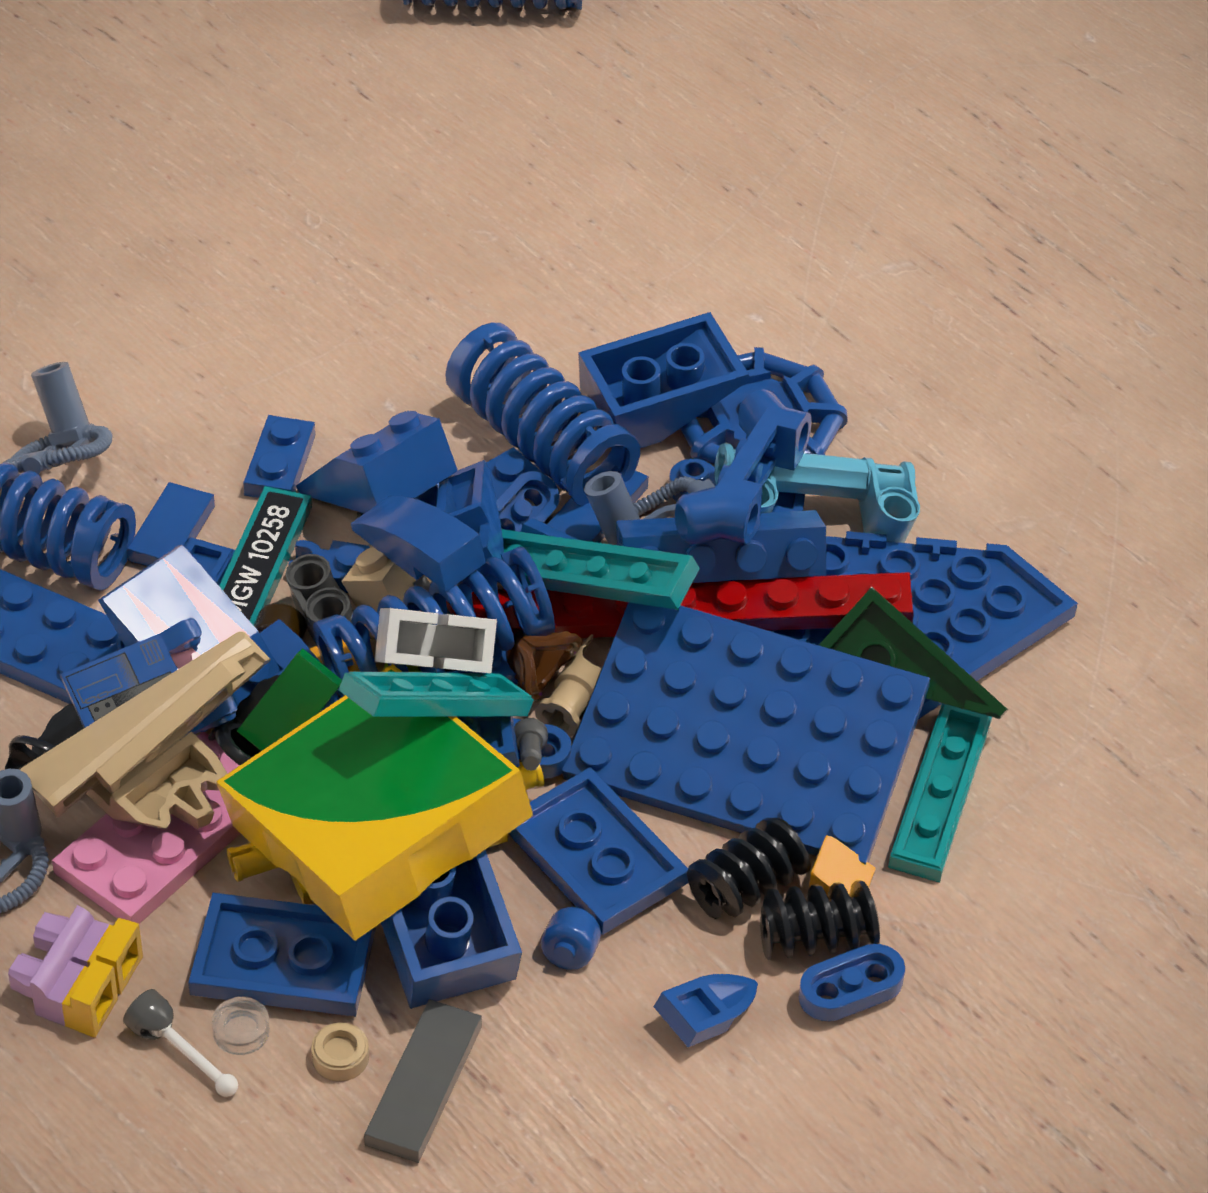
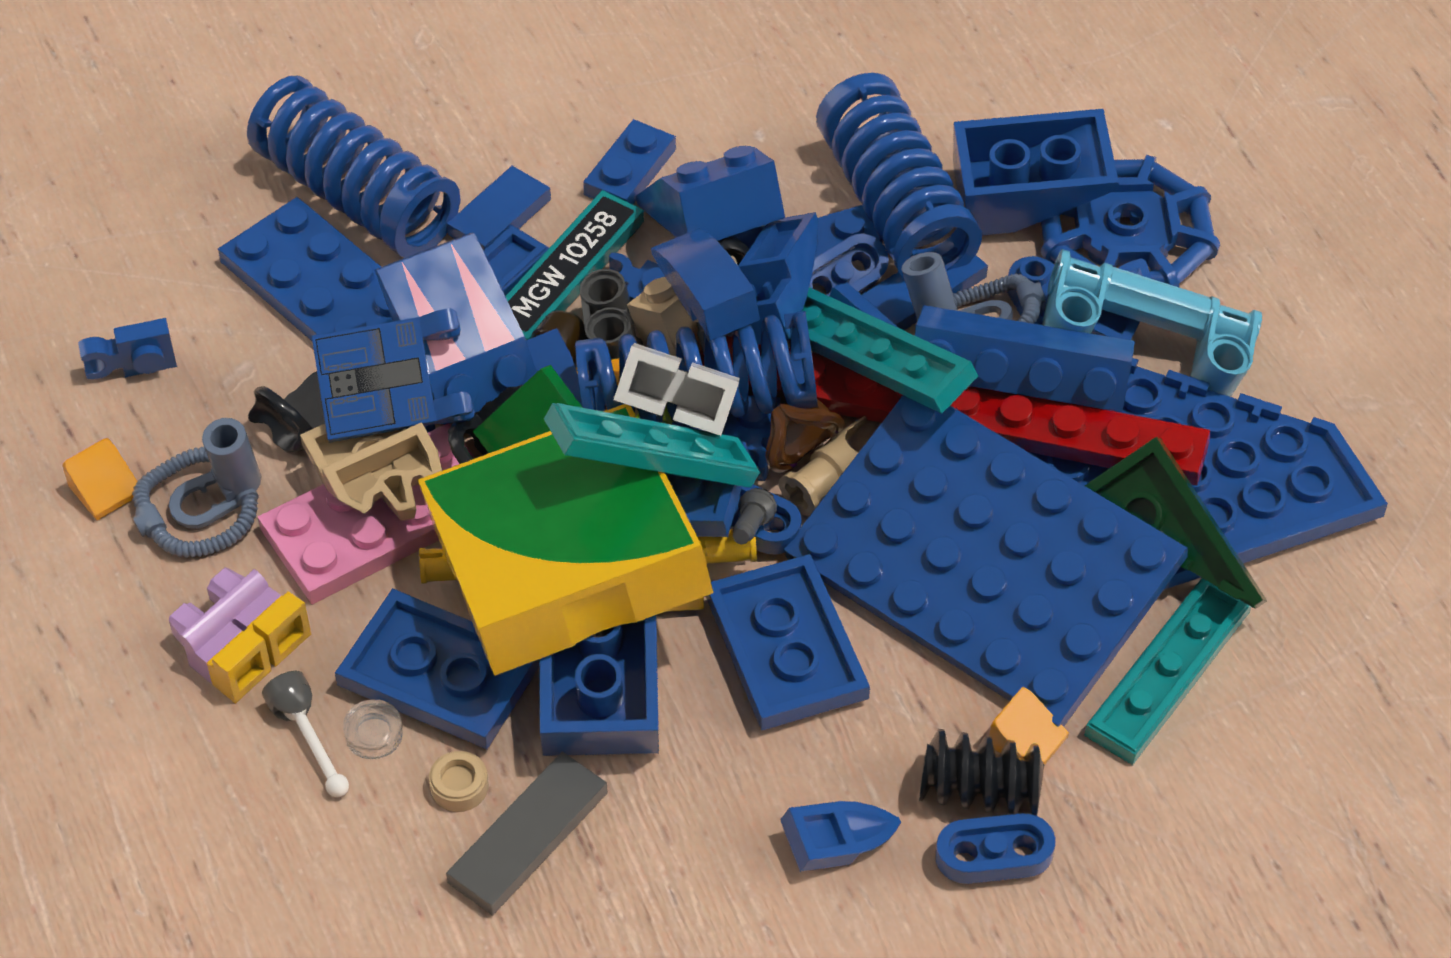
camera: 20 degrees right, 5 degrees up
(66, 421) = (437, 95): sand blue piece -> none
(144, 726) = (374, 407): tan wedge -> none
(571, 938) = (726, 726): blue piece -> none
(734, 506) = (1037, 319): blue plate -> none
(747, 868) = (931, 697): black piece -> none

